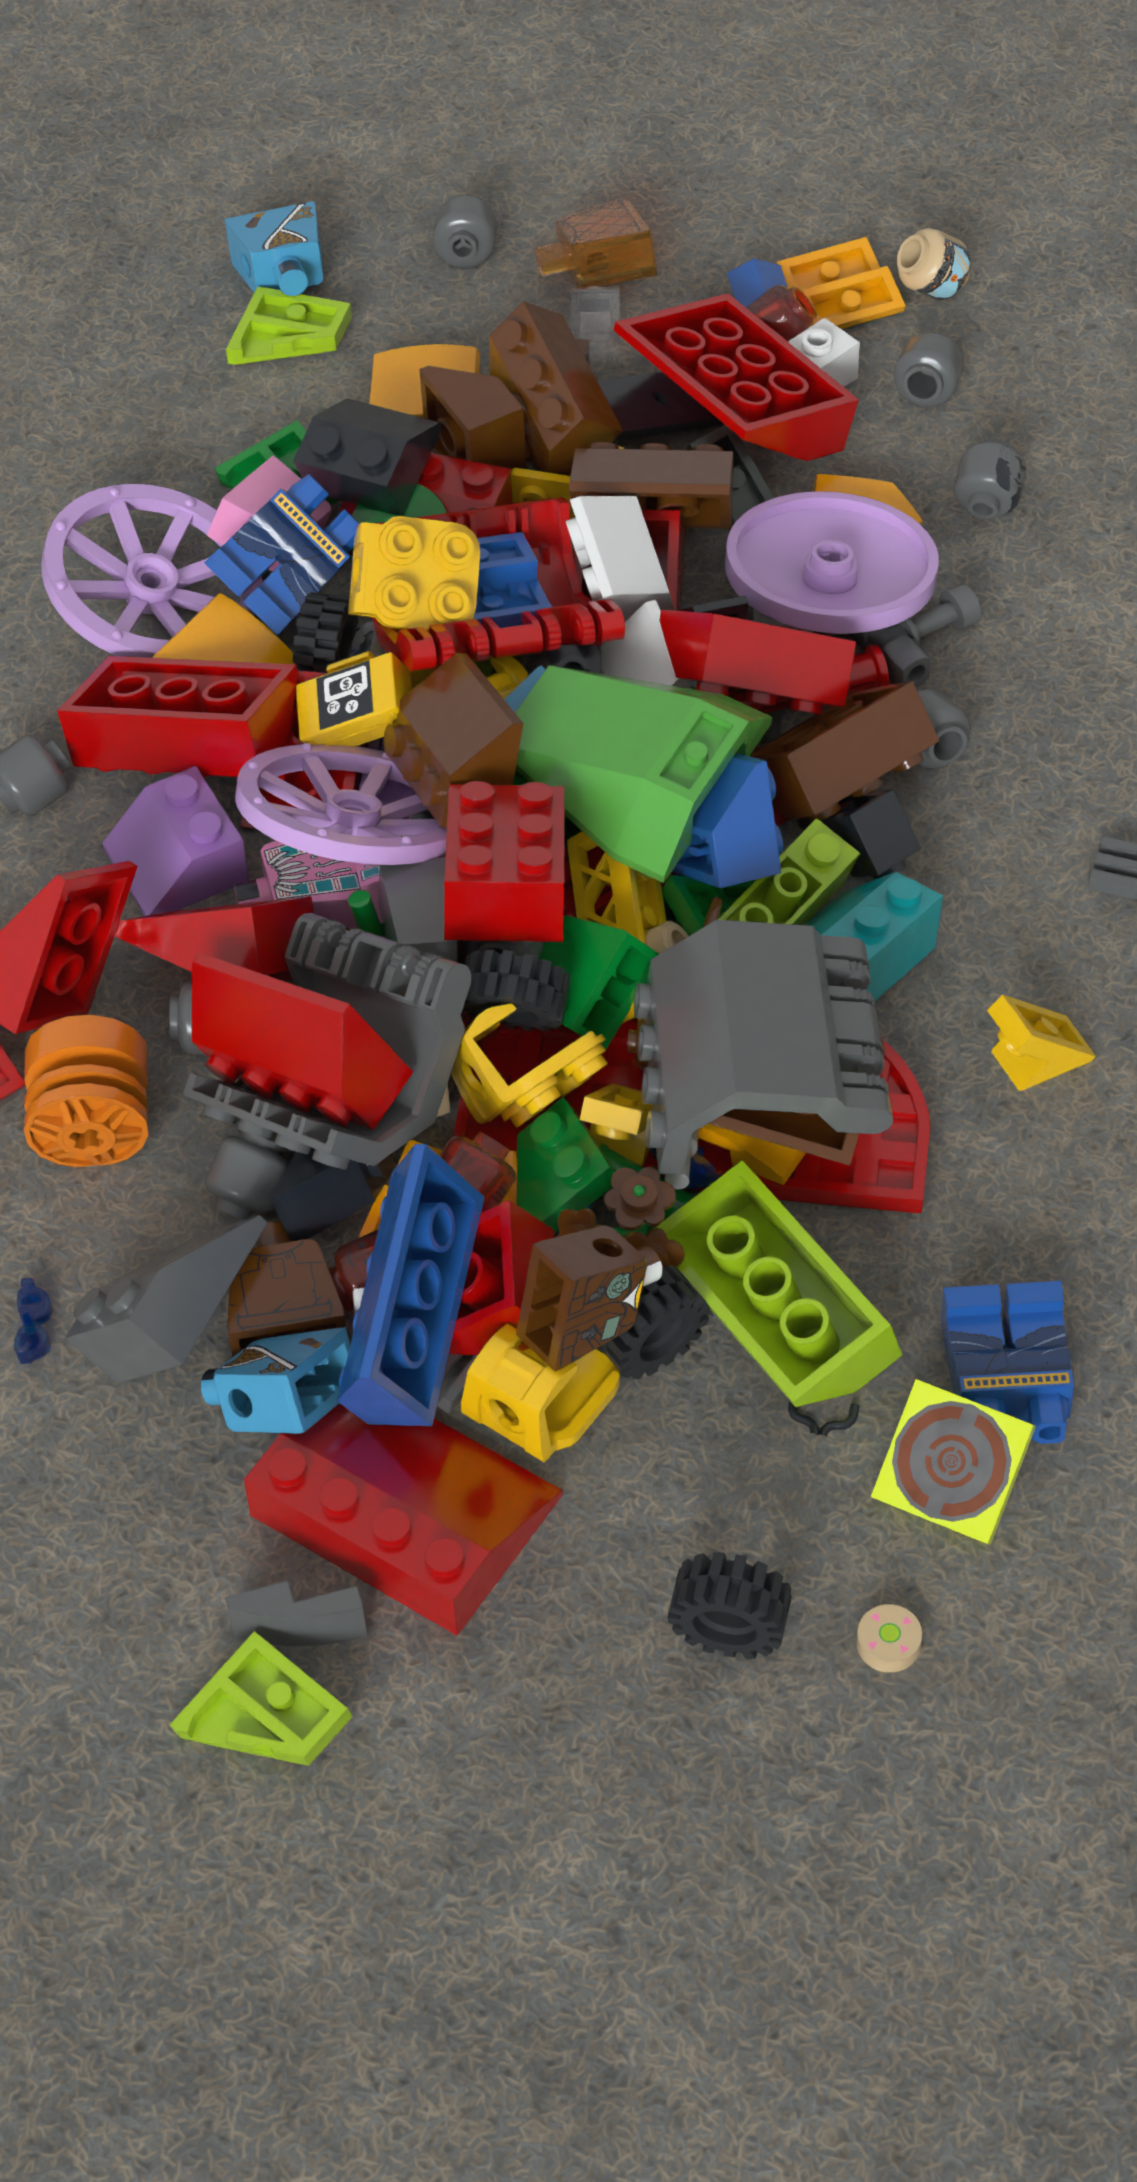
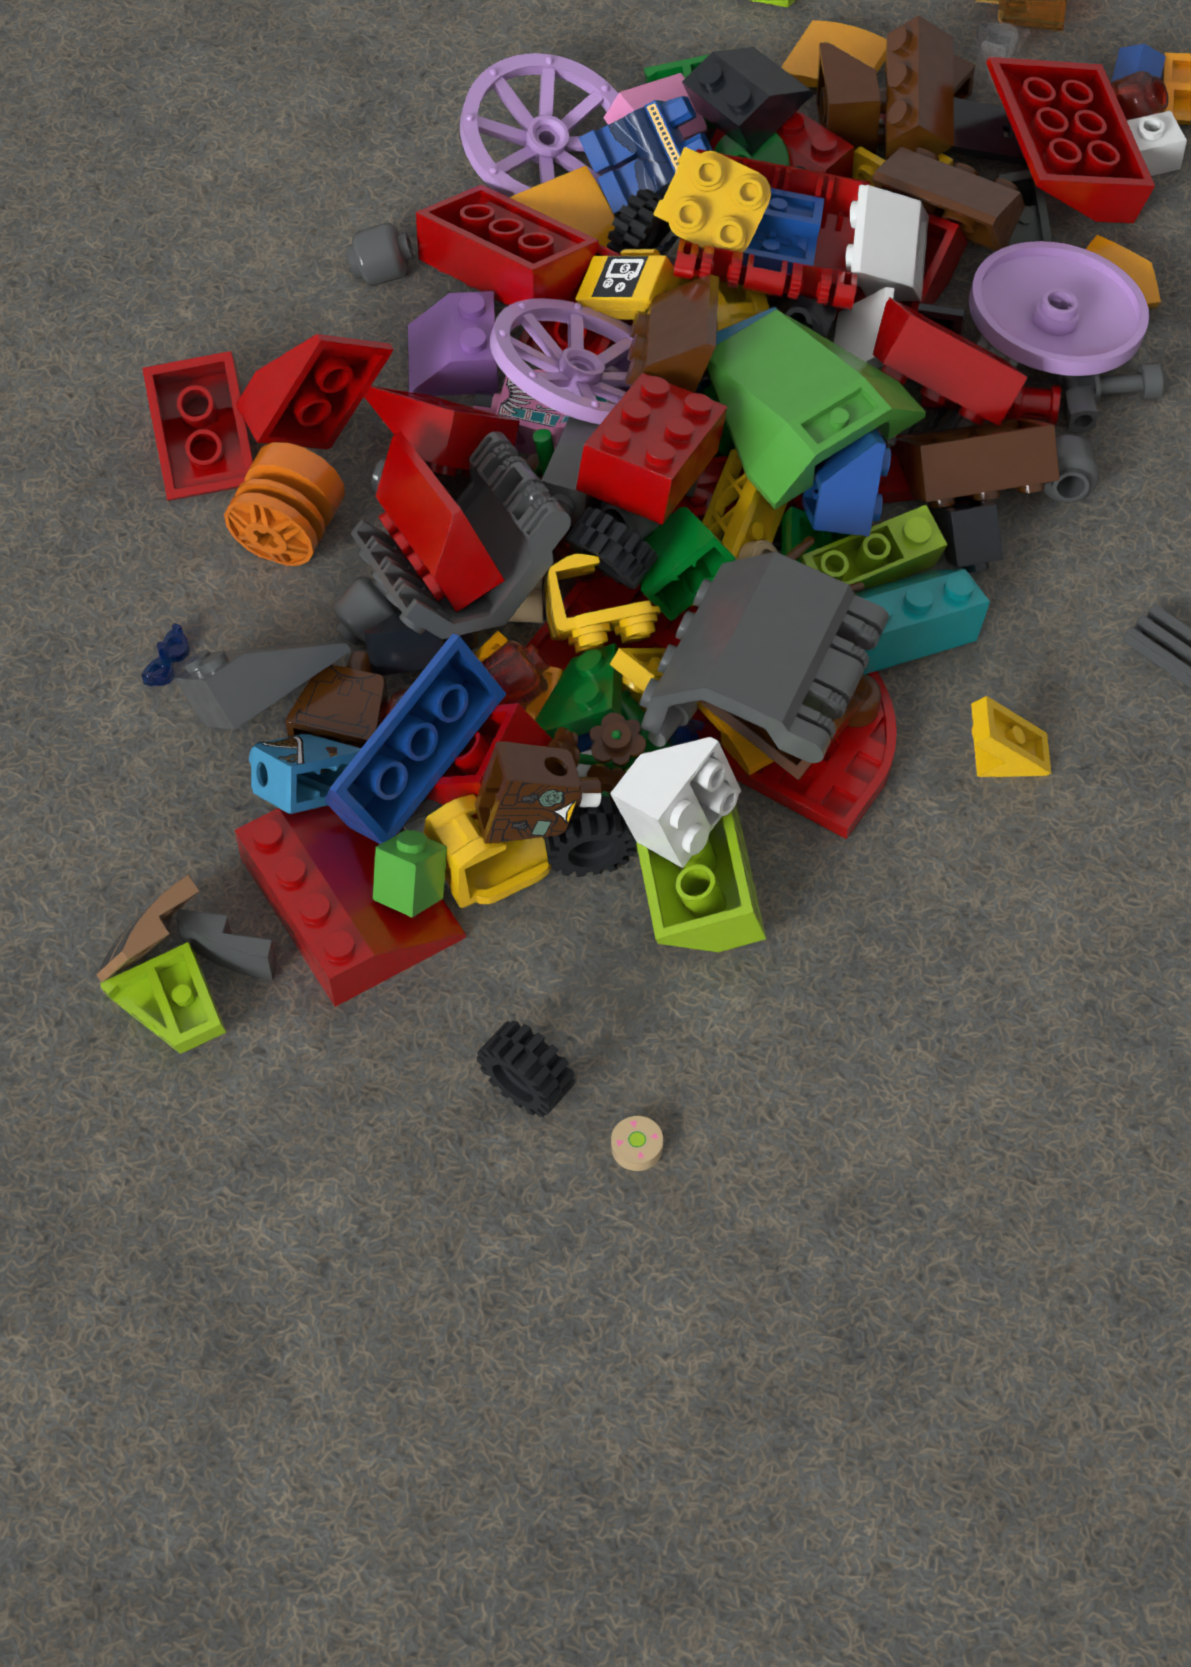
camera: 25 degrees right, 5 degrees up
(200, 1637) = (146, 929): none -> medium nougat slope
(478, 1441) = (409, 872): none -> bright green brick
(746, 1233) = (677, 797): none -> white slope
(827, 1427) = (686, 969): black piece -> none
(953, 1461) = (753, 1033): tile -> none
(1028, 1377) = (836, 995): blue hips -> none

